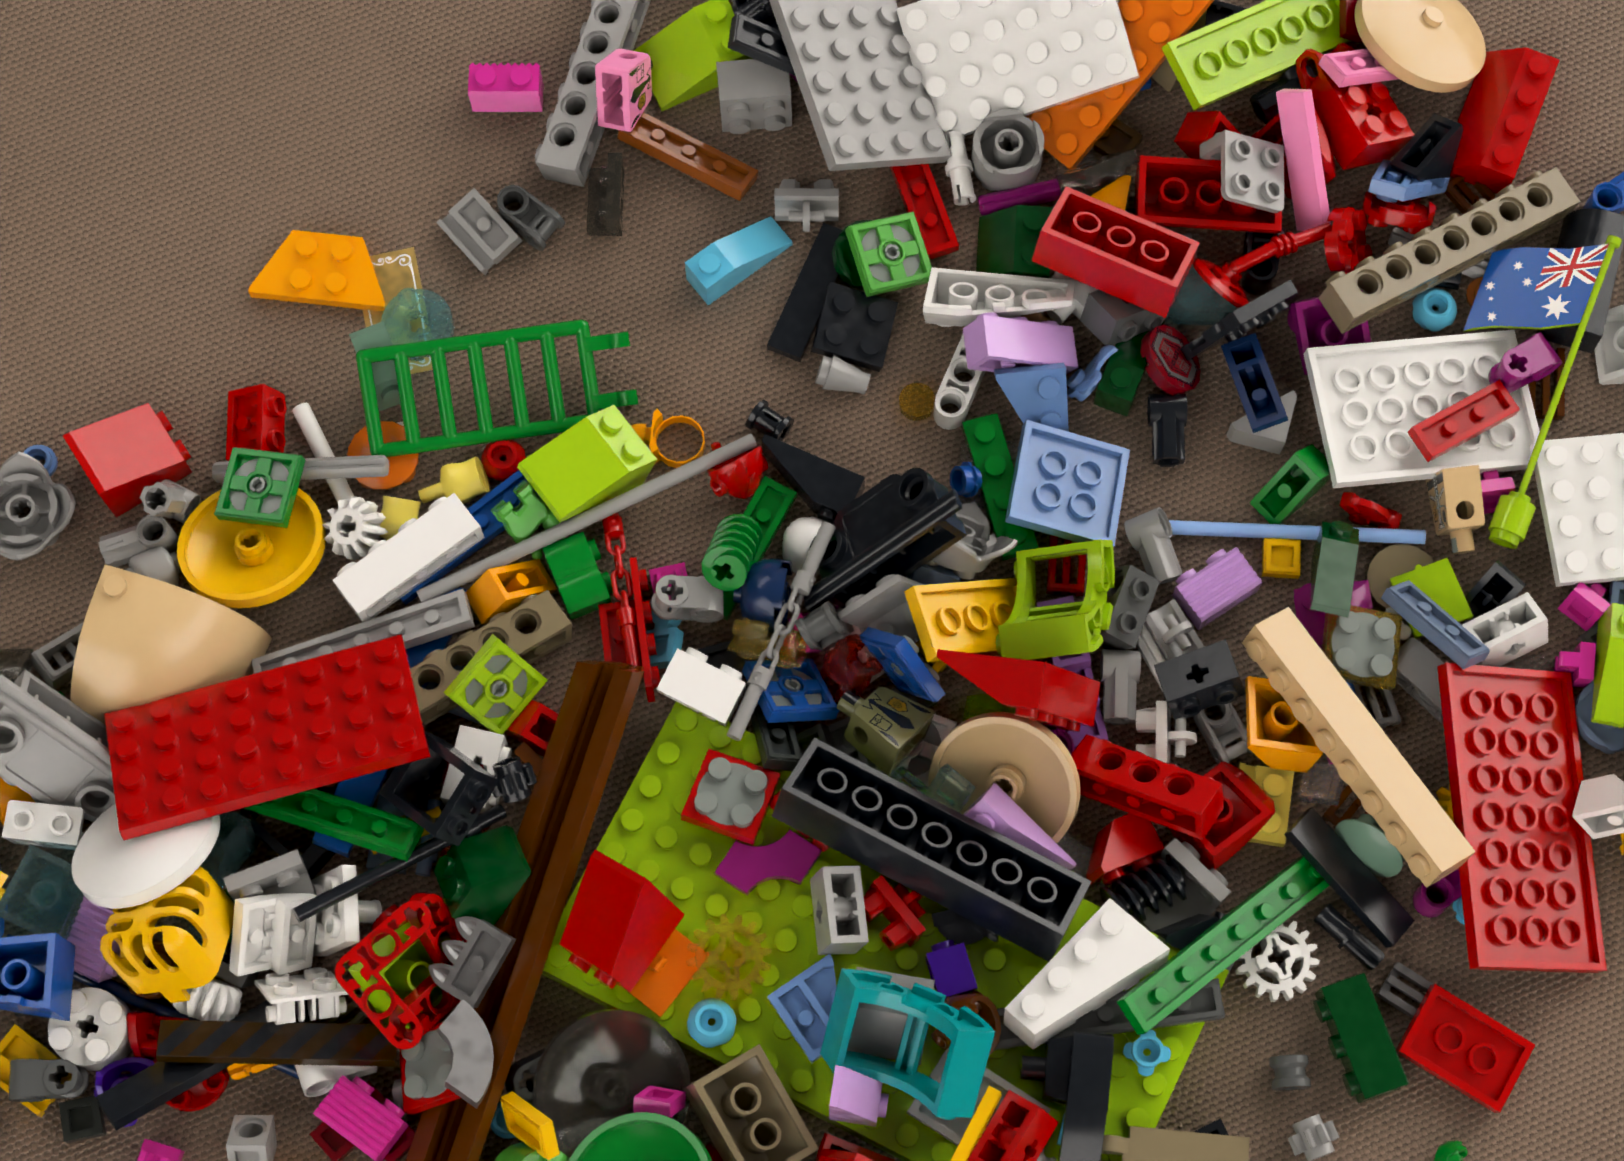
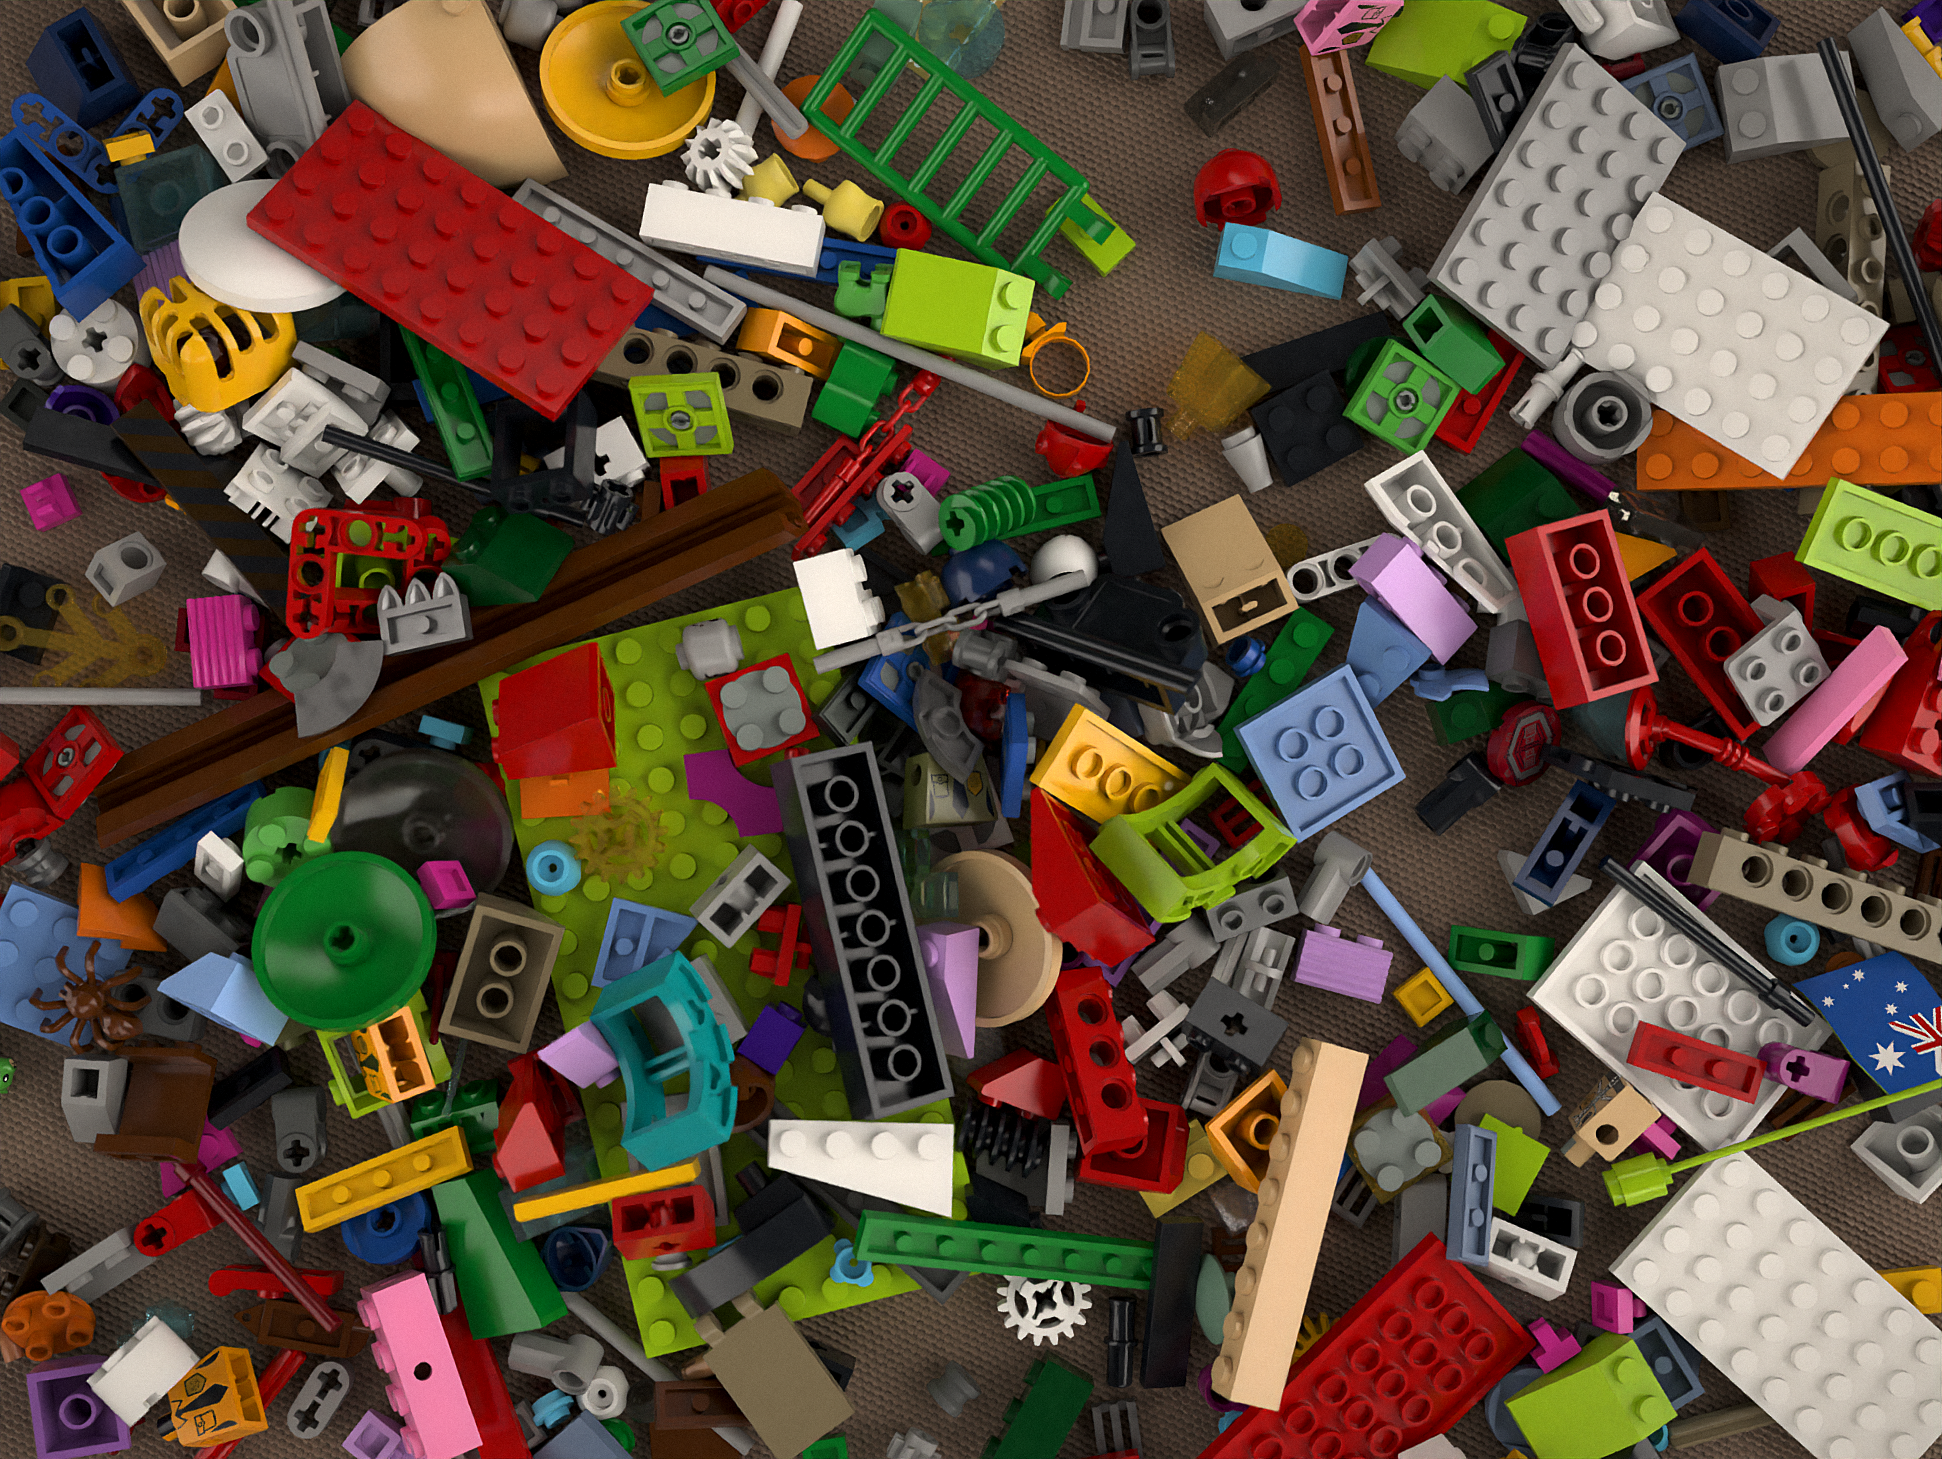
camera: 50 degrees right, 15 degrees up
(551, 1026) = (445, 733): none -> medium azure plate
(619, 359) = (1101, 257): none -> lime plate
(662, 794) = (710, 649): none -> light grey head
(668, 242) = (1235, 189): none -> red cylinder
(778, 358) = (1212, 387): none -> clear yellow torso
(844, 691) = (942, 726): none -> flat silver tile
(882, 195) = (1454, 342): none -> green slope
(901, 437) = (1228, 570): none -> tan slope
(1457, 343) = (1770, 991): none -> black bar

